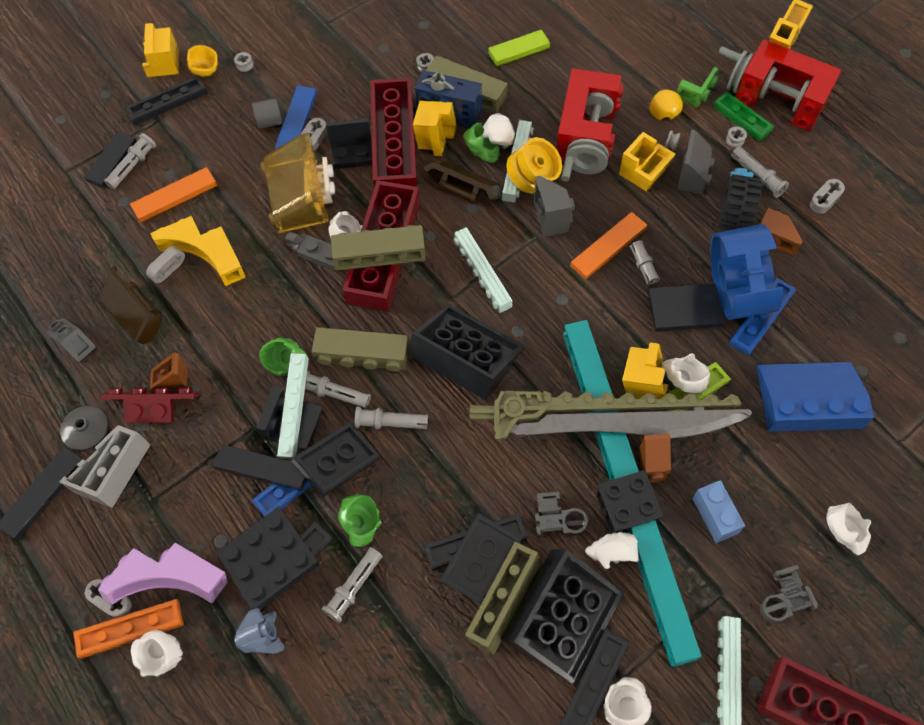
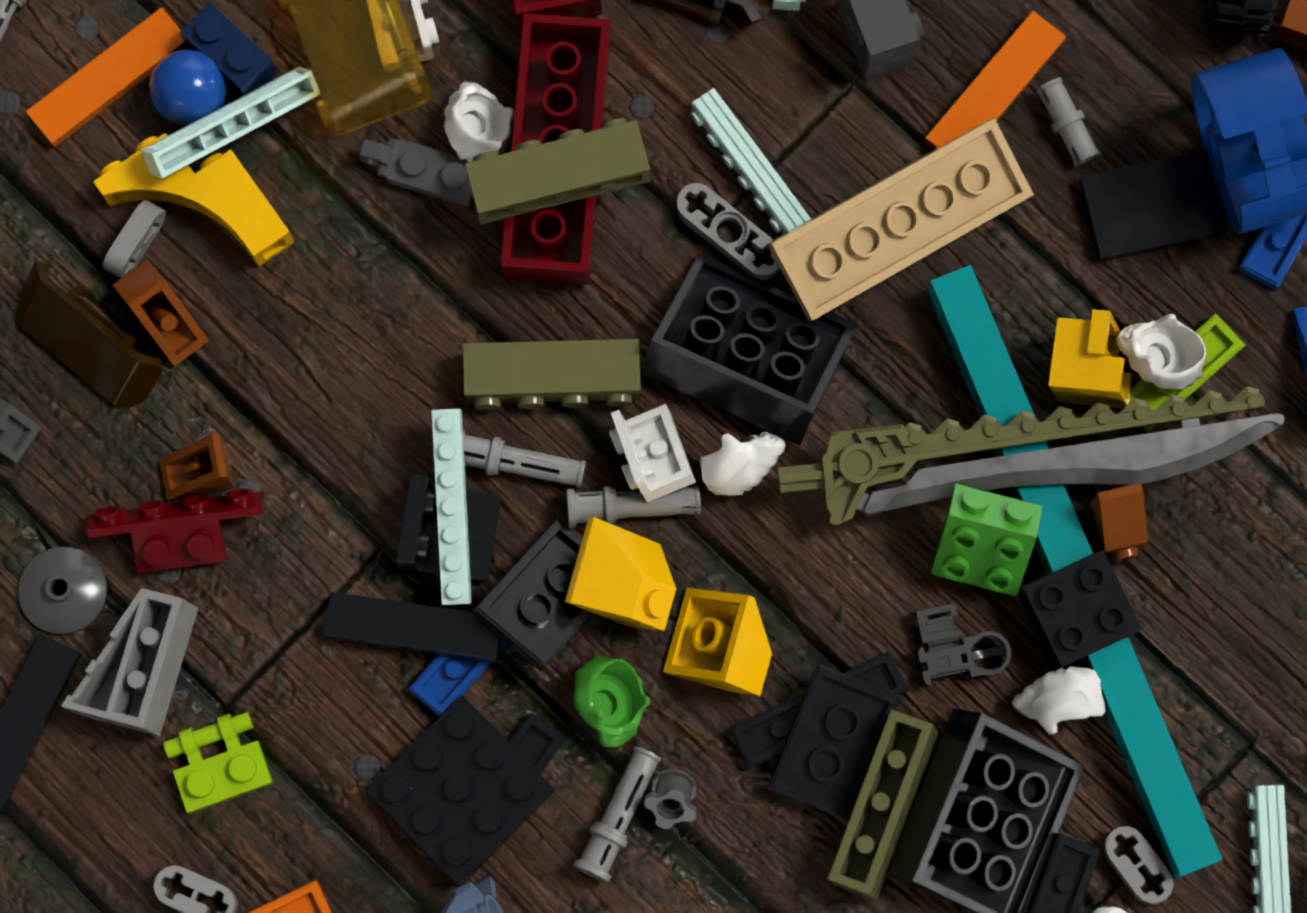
camera: 10 degrees left, 15 degrees up
(141, 534) = (223, 775): none -> lime plate
(169, 299) = (160, 312): none -> dark orange slope
(175, 570) = (307, 832): lavender arch -> none
(207, 198) = (187, 87): none -> blue piece
(223, 214) = (230, 122): none -> light aqua piece
(232, 188) = (233, 52): none -> dark blue brick
(276, 355) = (403, 406): bright green hair -> none
(376, 454) = (622, 577): none -> yellow slope
(384, 578) = (672, 798): none -> dark grey brick
(405, 393) = (653, 452): none -> white bracket
(426, 497) = (720, 642): none -> yellow slope
(450, 403) = (740, 465): none -> white hair
(466, 304) = (698, 219): none -> light grey beam
(552, 296) = (900, 219): none -> tan plate
(579, 457) = (986, 540): none -> bright green brick
(655, 652) = (1146, 858): none -> light grey beam
(718, 511) = (1236, 604): medium blue brick -> none

